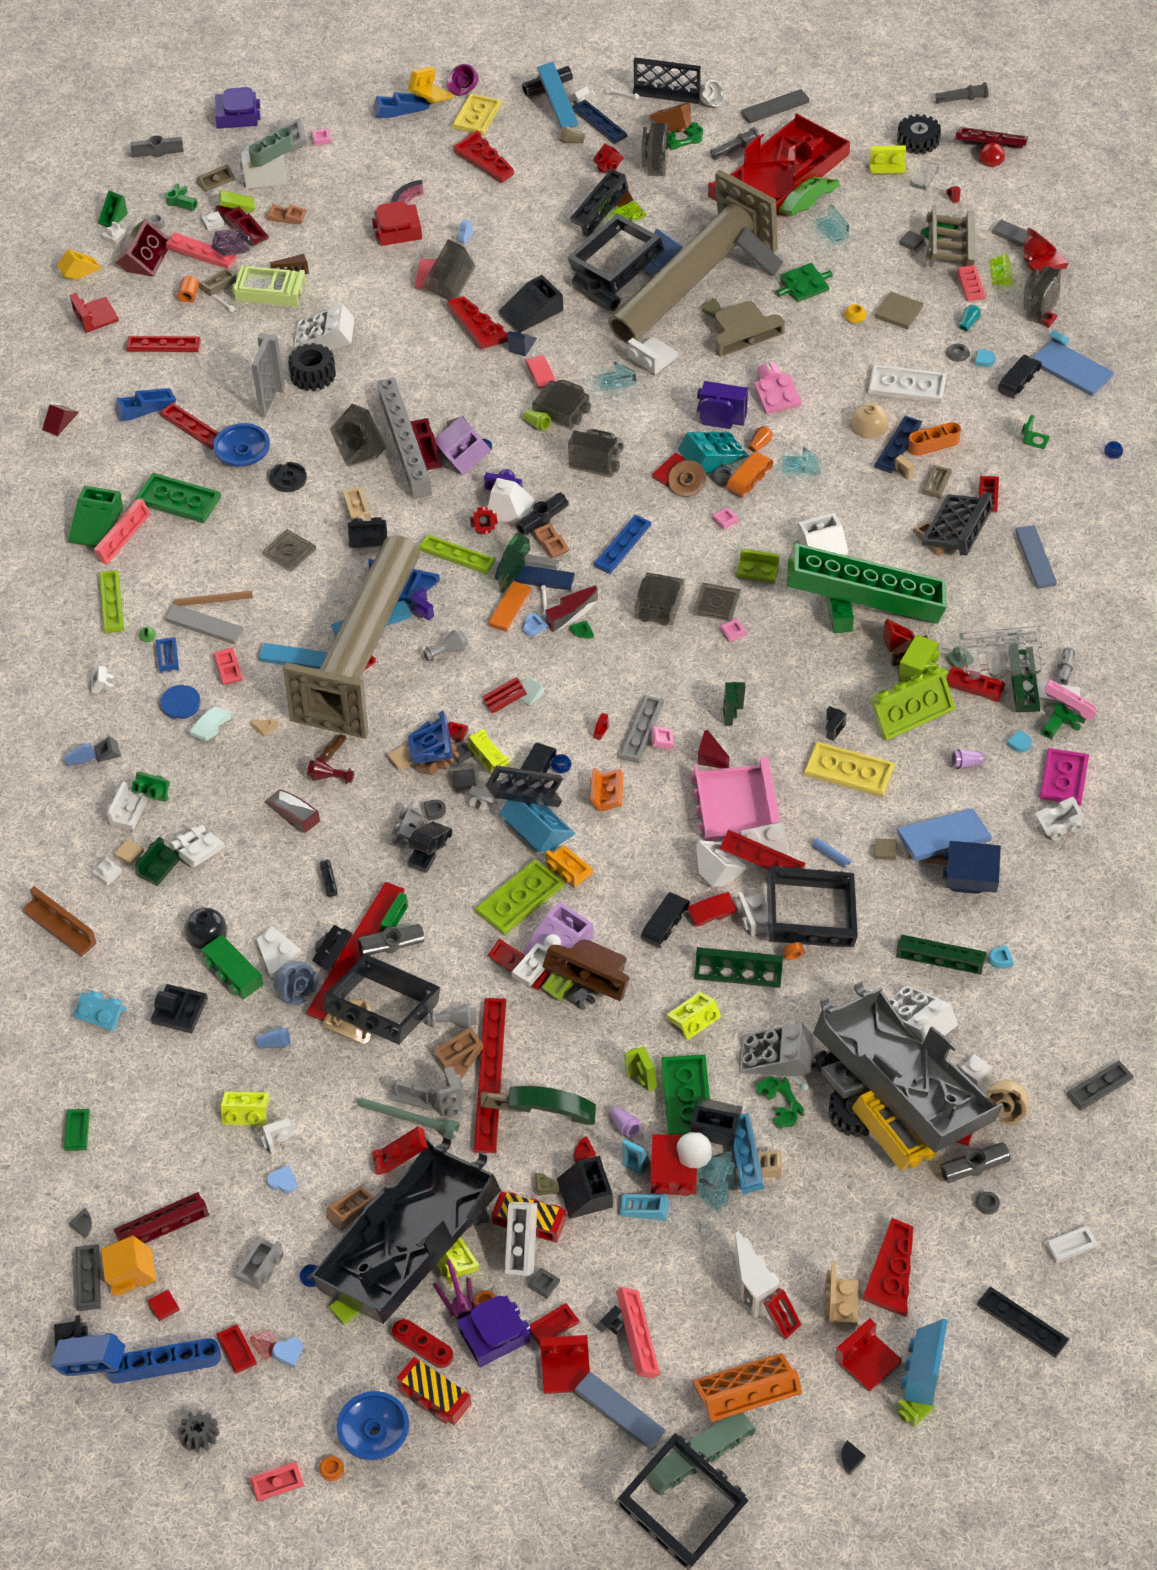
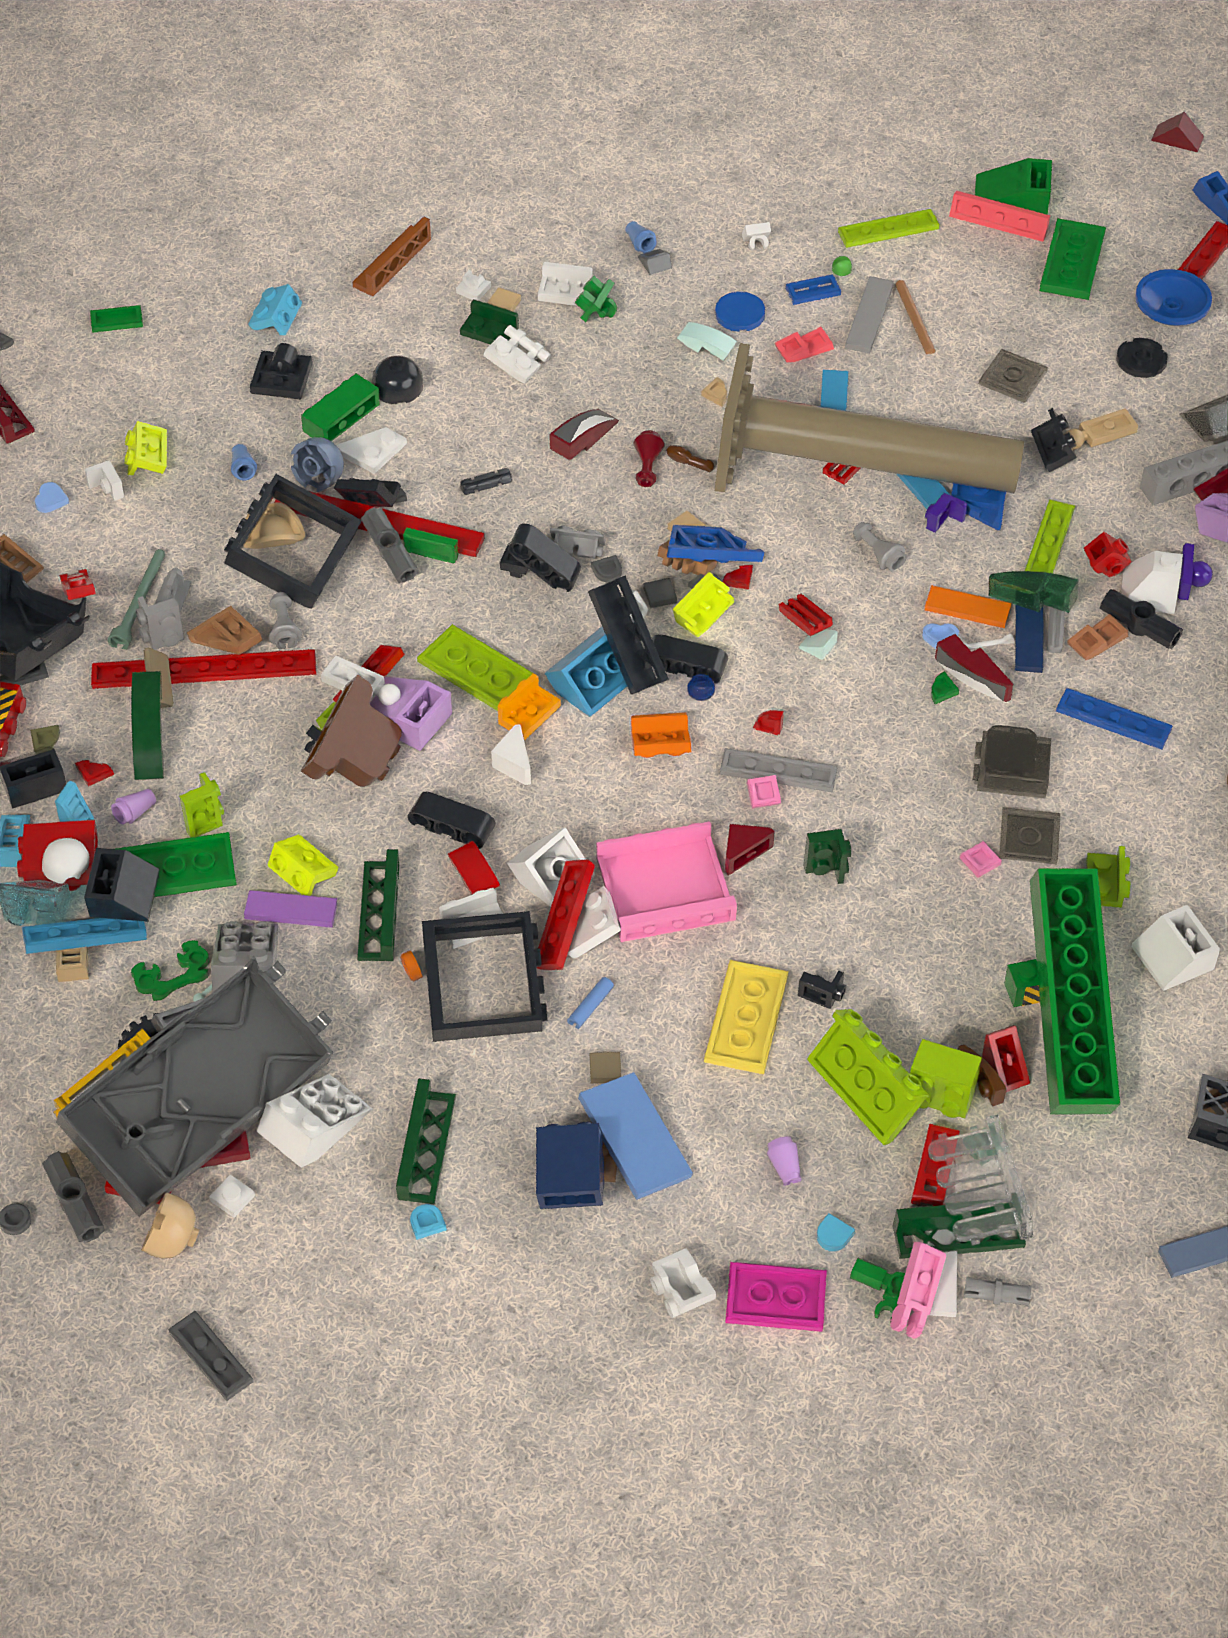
camera: 80 degrees right, 0 degrees up
(612, 877) = (511, 756): none -> white slope
(725, 518) = (1196, 833): bright pink tile -> none
(731, 1025) = (290, 908): none -> medium lavender tile

